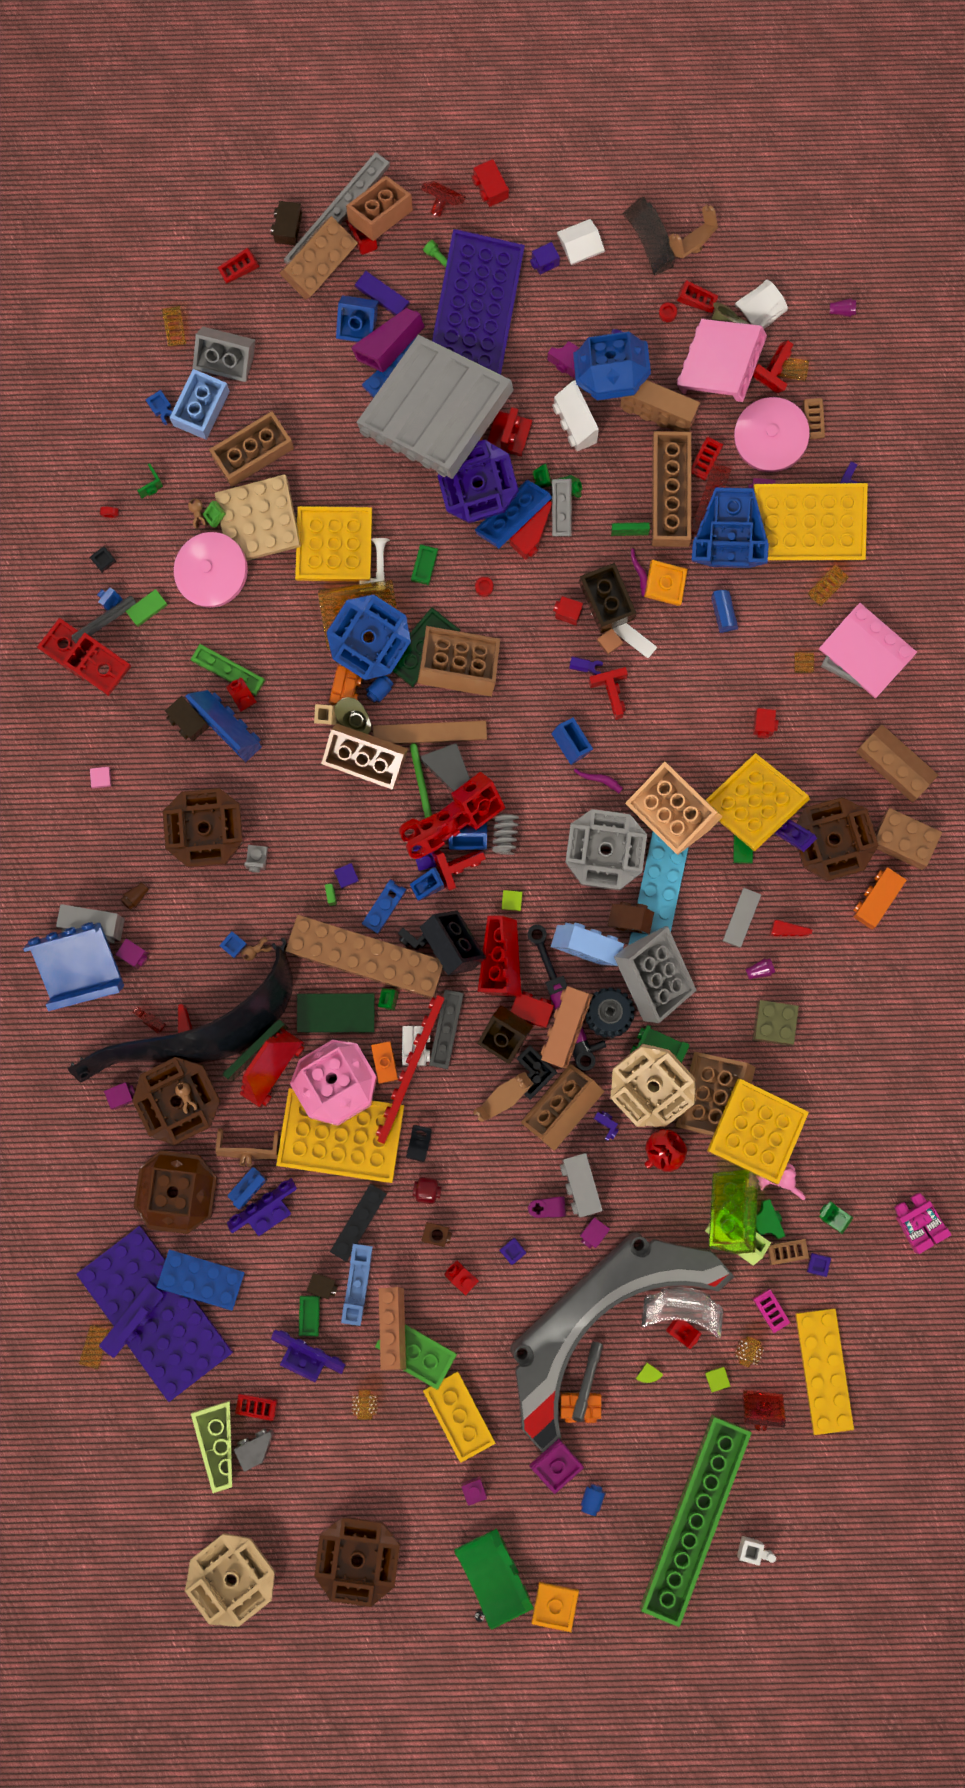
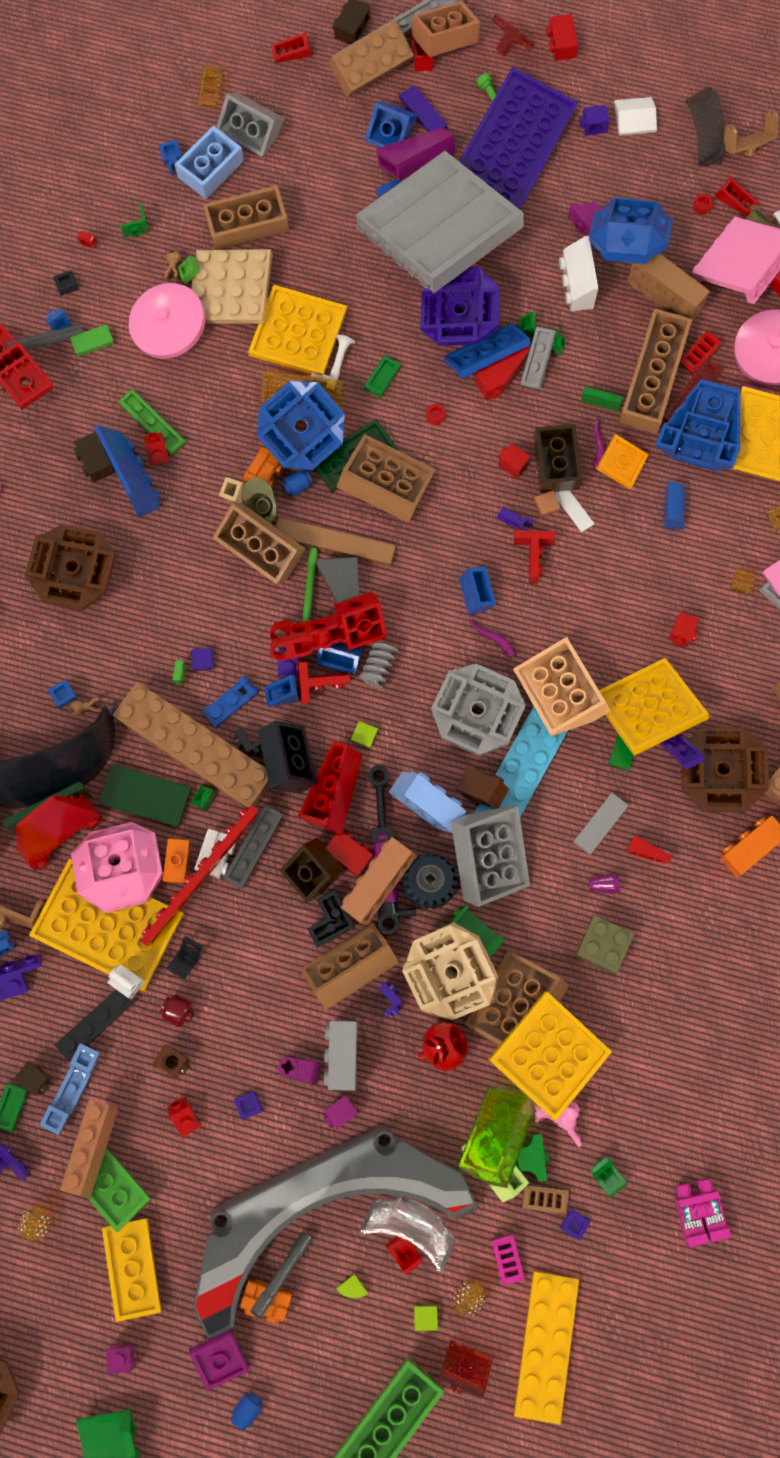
camera: 15 degrees right, 5 degrees down
(256, 858) = (116, 615): light grey bracket -> none
(374, 1179) = (125, 981): none -> white brick
(504, 1097) = (290, 936): medium nougat piece -> none
(510, 432) = (510, 272): red bracket -> none

